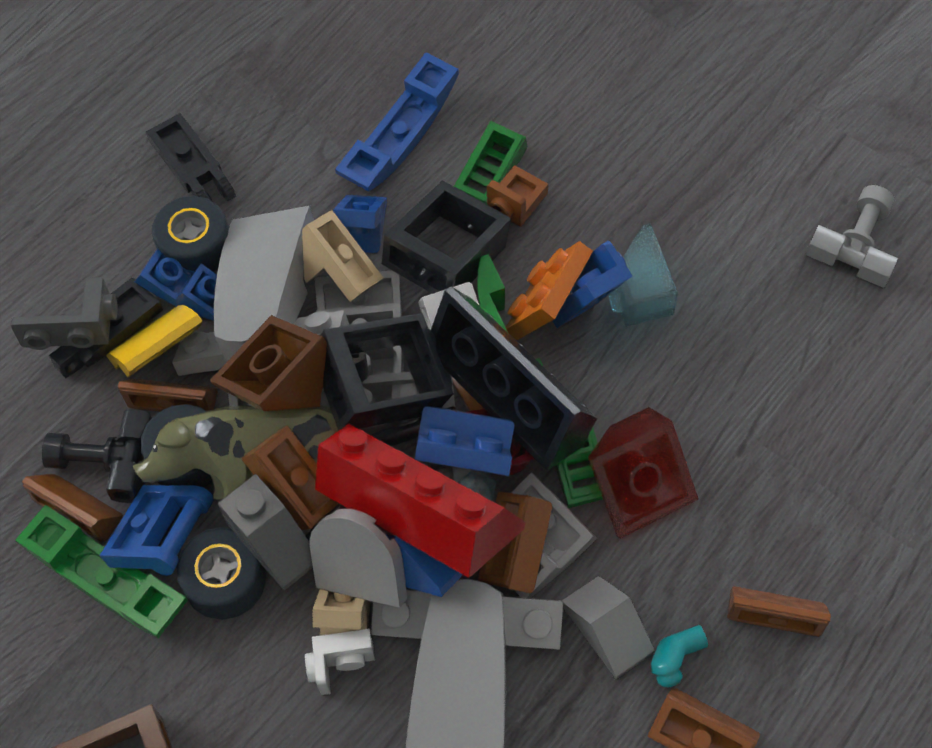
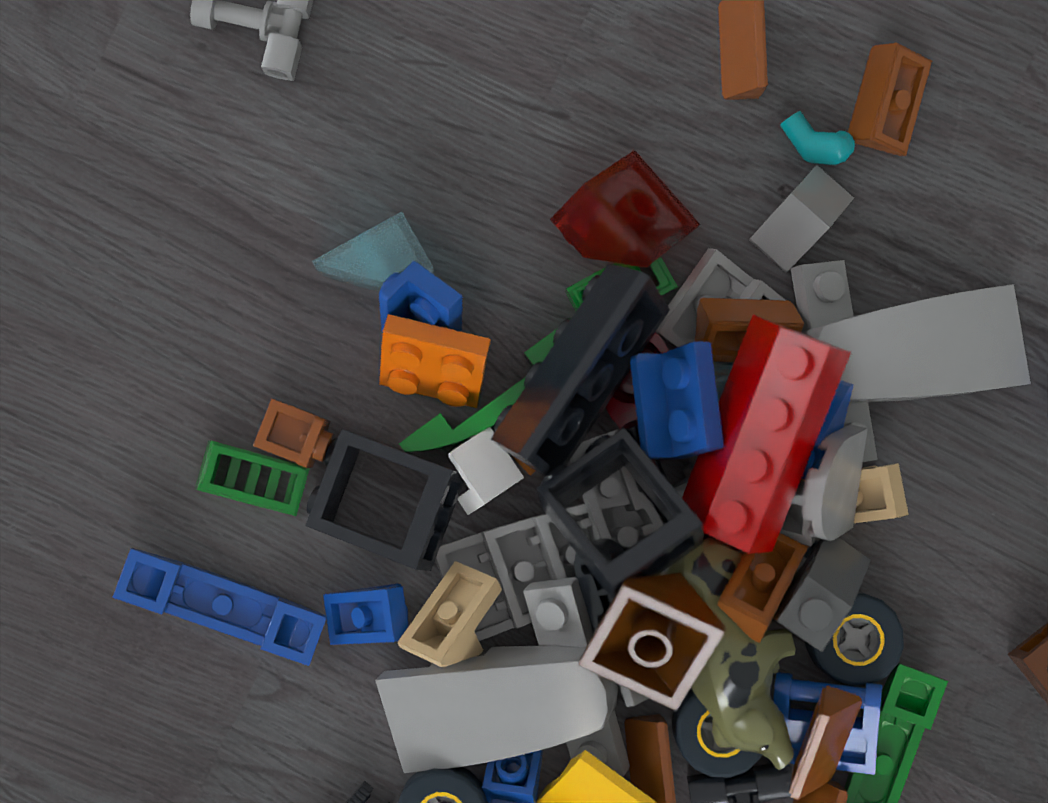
camera: 105 degrees left, 25 degrees up
(142, 508) = (824, 740): none -> dark orange slope
(344, 650) = (913, 478): white bracket -> none

